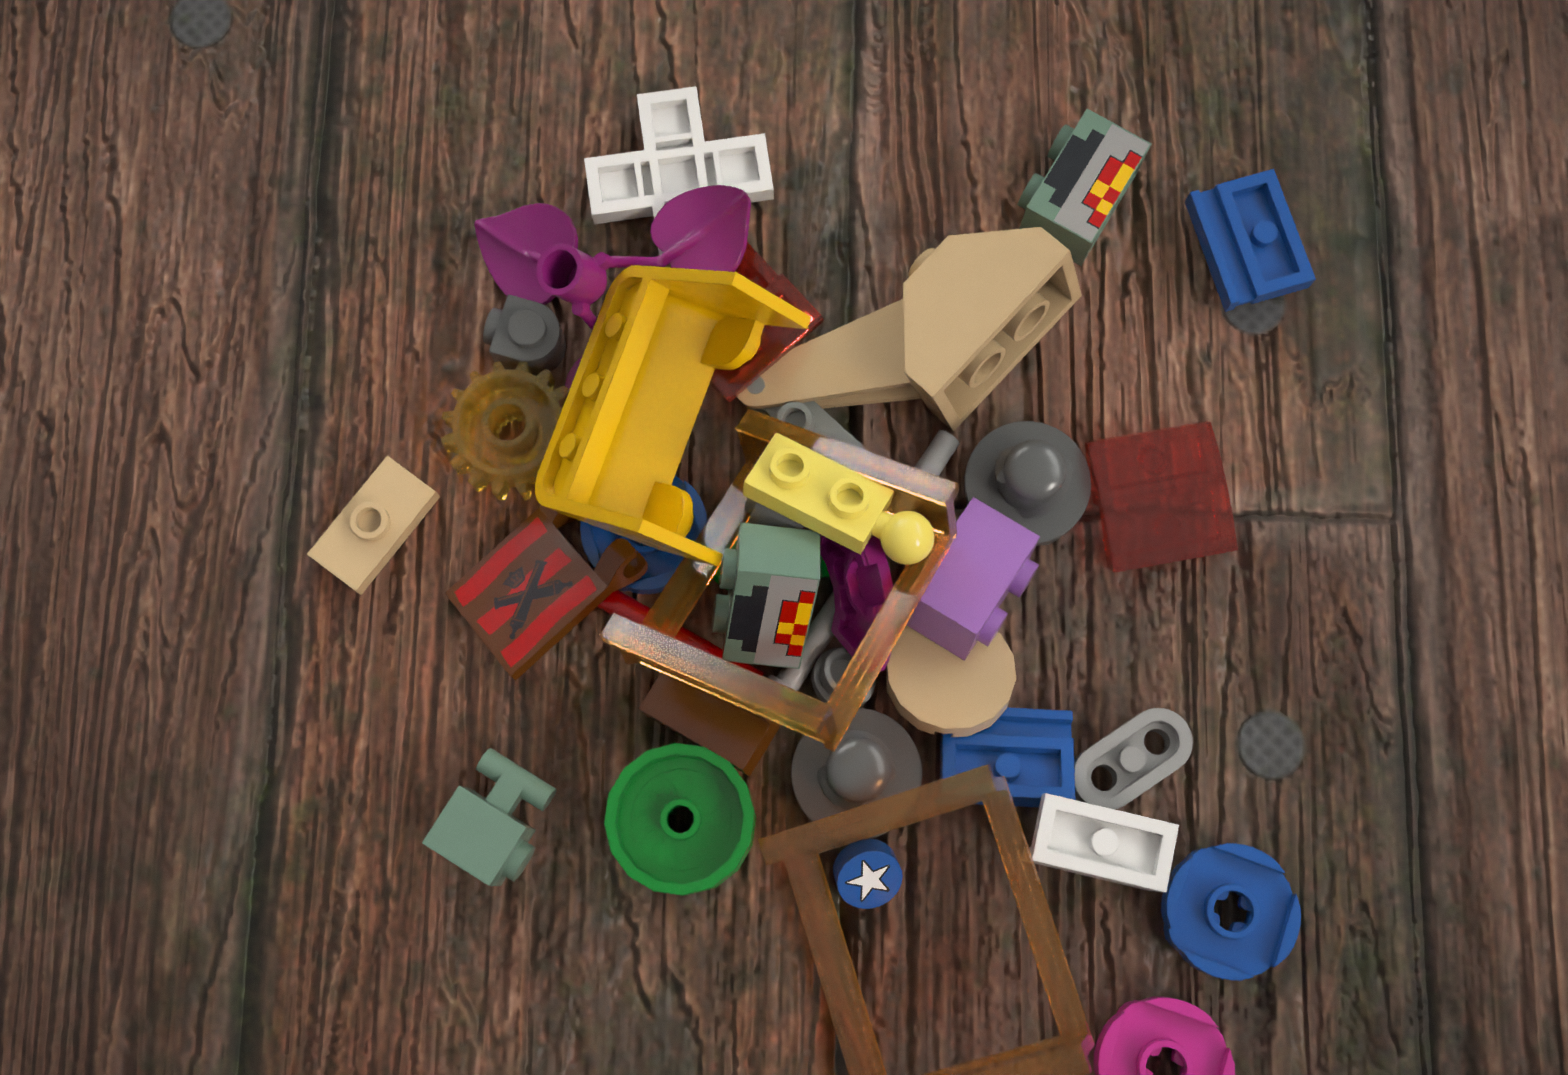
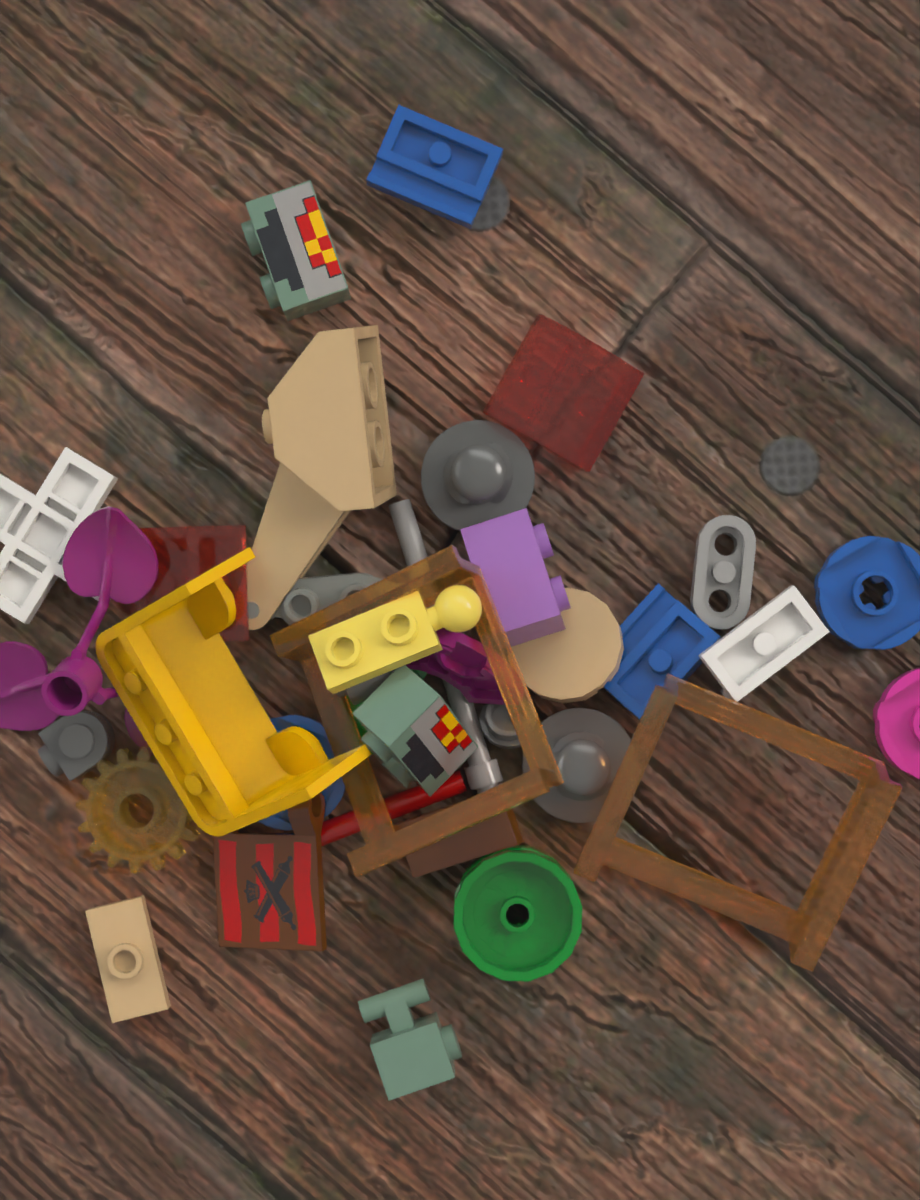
camera: 55 degrees left, 10 degrees up
(867, 873) = (653, 814): blue tile -> none

